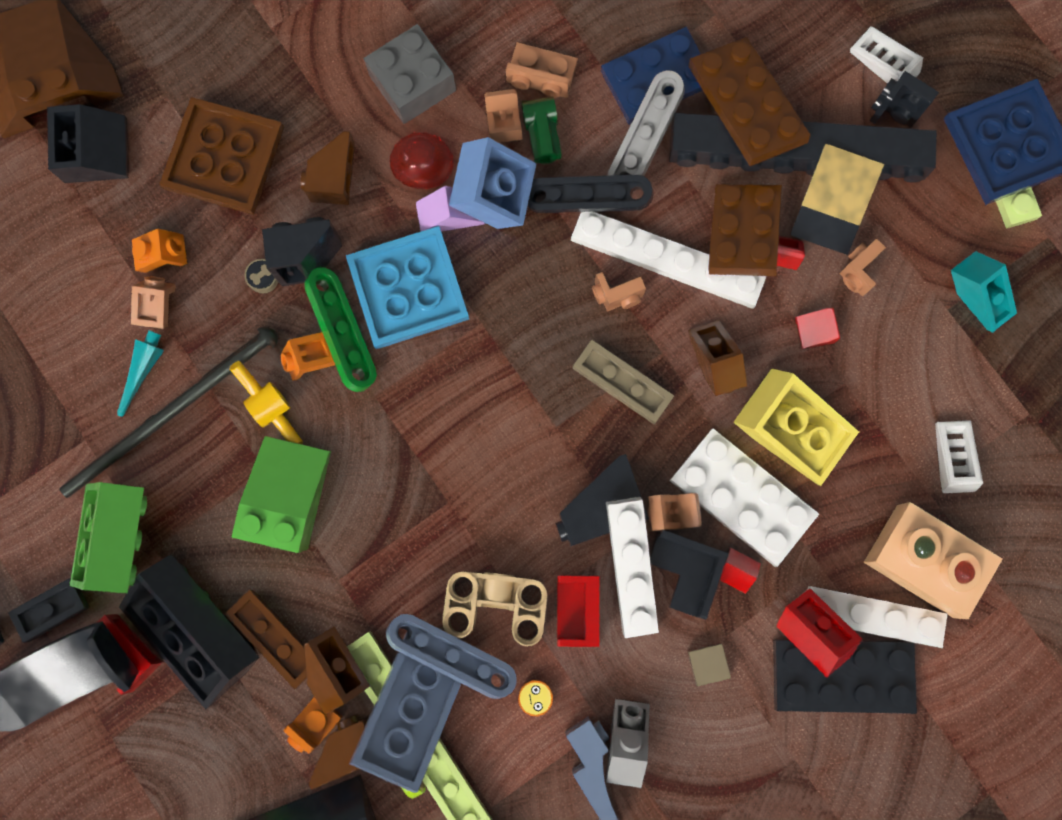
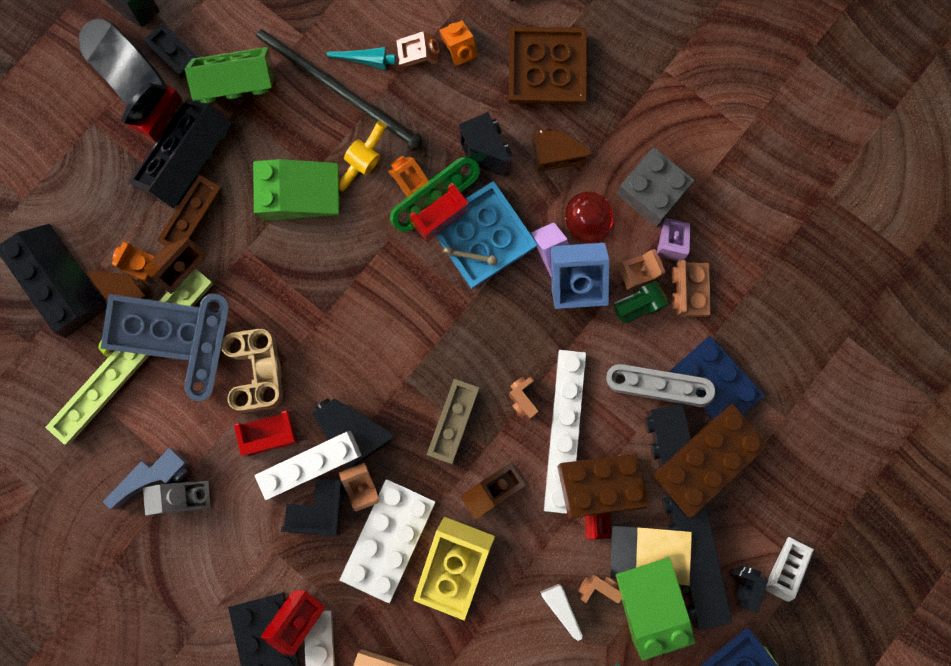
camera: 70 degrees right, 0 degrees up
(259, 277) = (457, 118): tile -> none
(367, 325) = (440, 214): none -> red panel
(443, 282) = (492, 260): none -> dark tan hinge
(480, 71) = (674, 240): none -> lavender slope
(535, 698) = (194, 420): light yellow tile -> none
(590, 194) = (596, 354): black plate -> none
(709, 664) = (251, 545): dark tan tile -> none
(739, 571) = (329, 550): red slope -> none
(818, 328) = (539, 566): slope -> none
(867, 316) = (558, 602): none -> white slope
(903, 208) = (655, 609): none -> bright green slope

